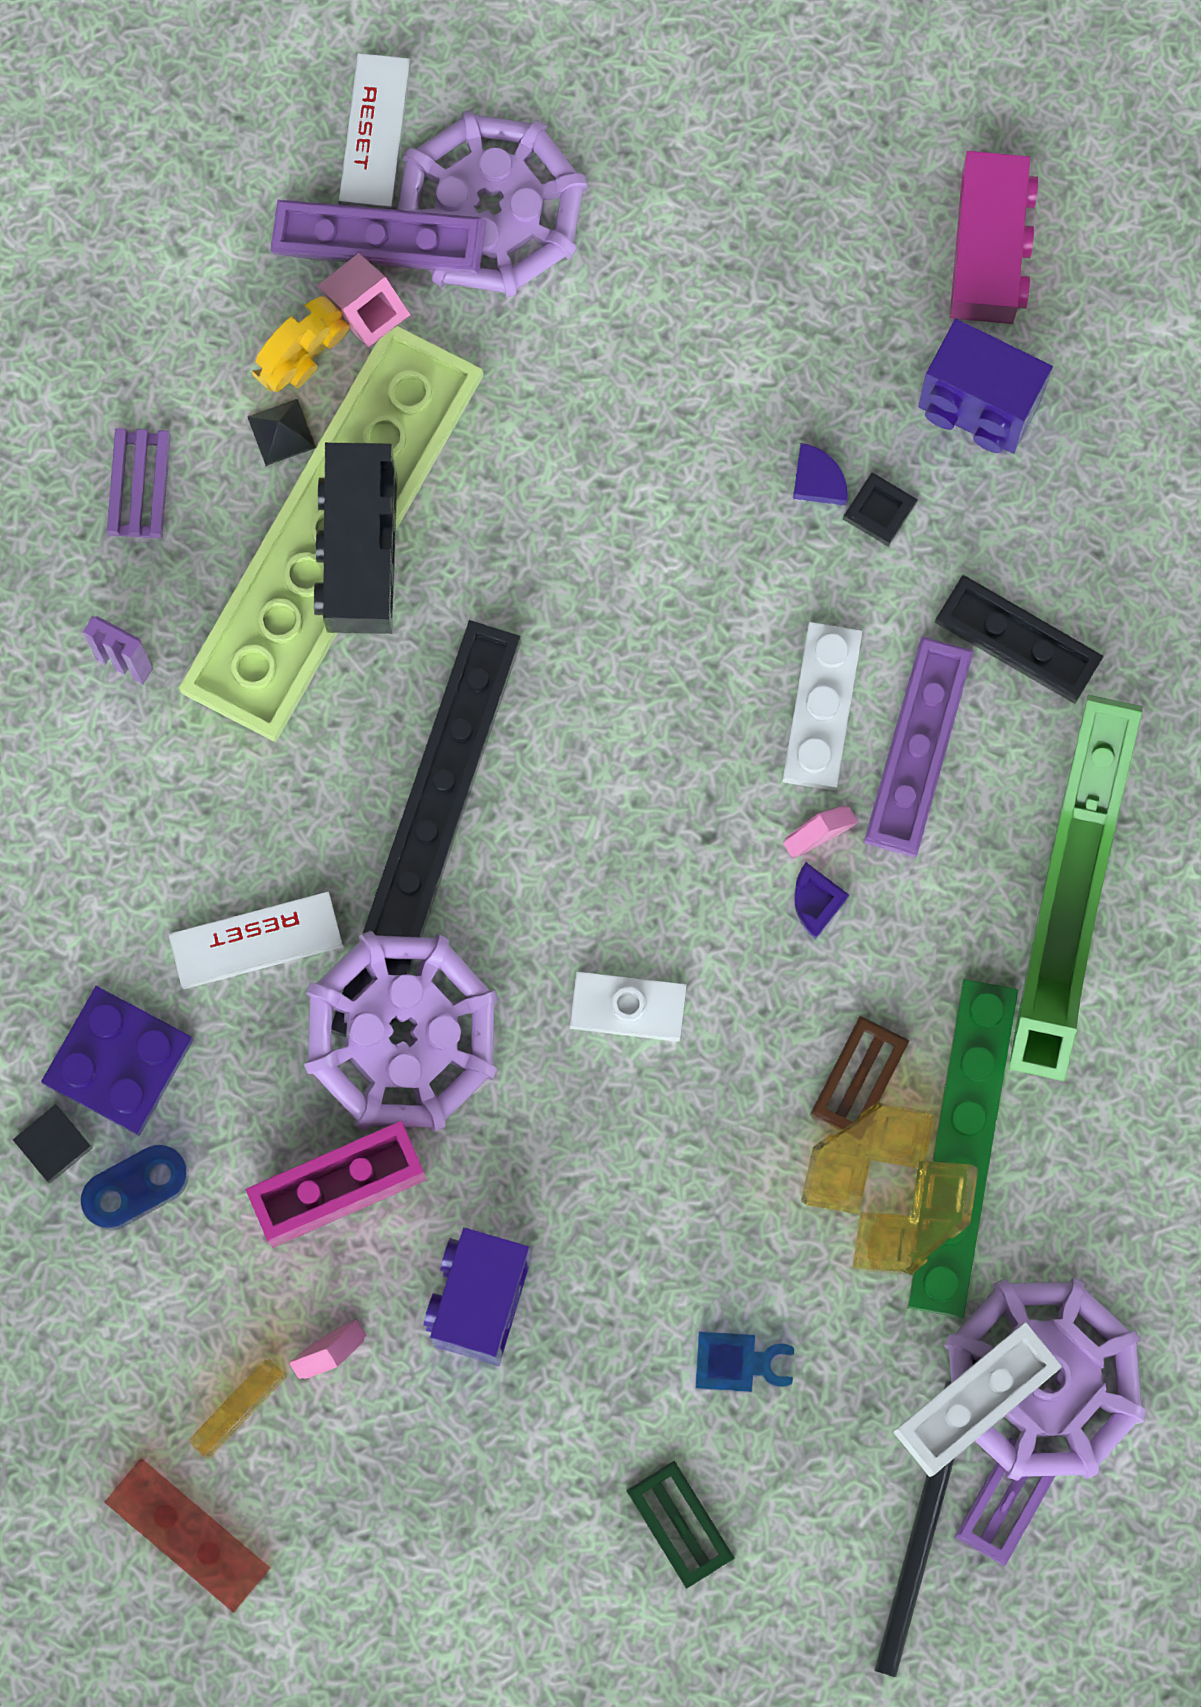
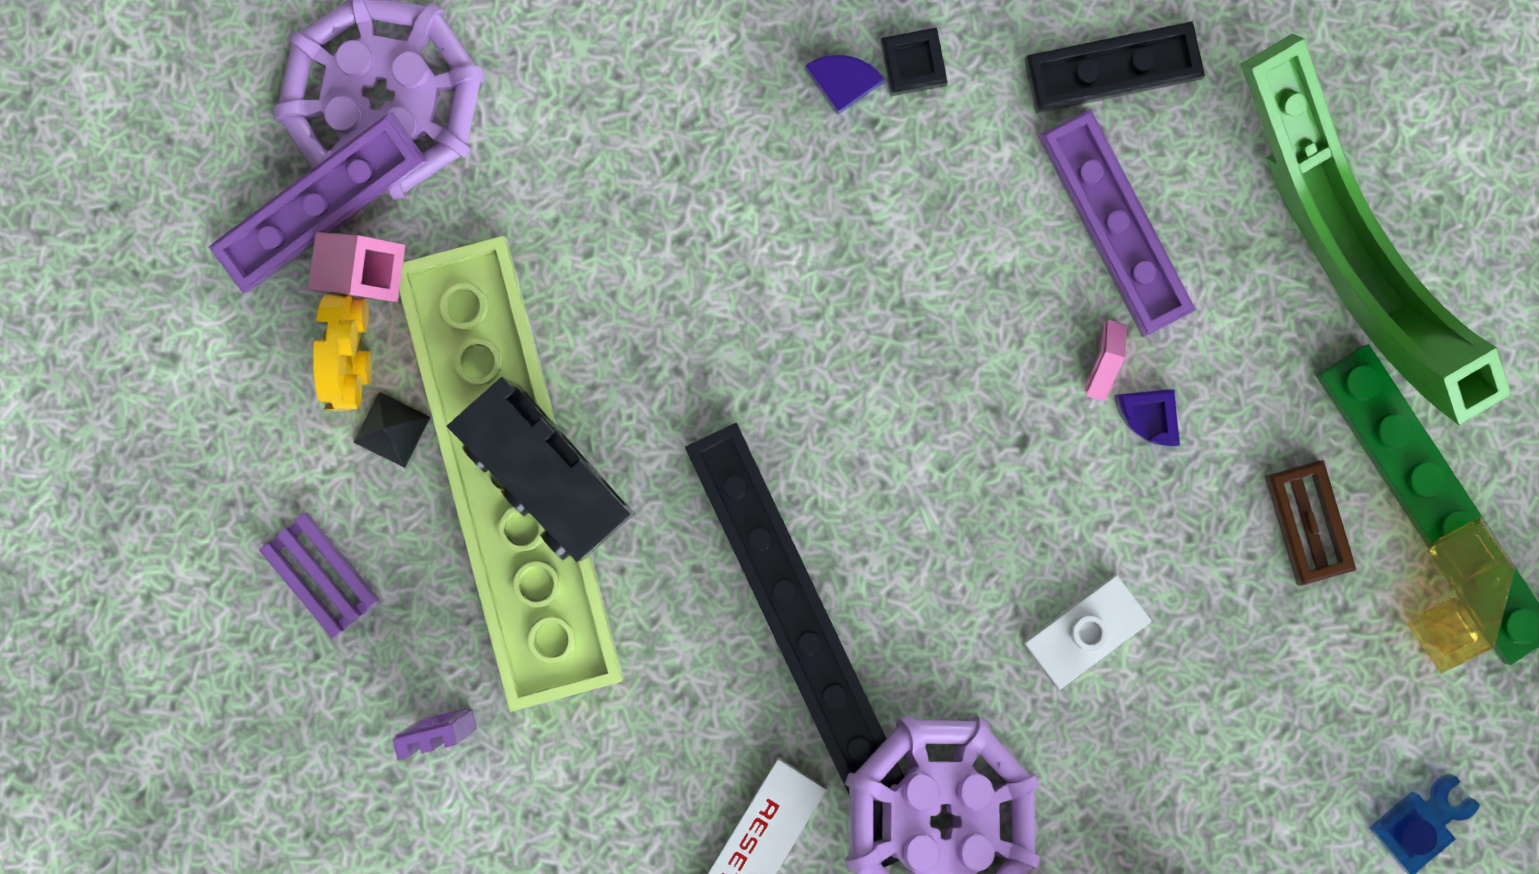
camera: 45 degrees left, 10 degrees up
(374, 131) = (232, 119): white tile -> none
(822, 706) = (1015, 259): white plate -> none
(842, 1160) = (1366, 605): clear yellow tile -> none

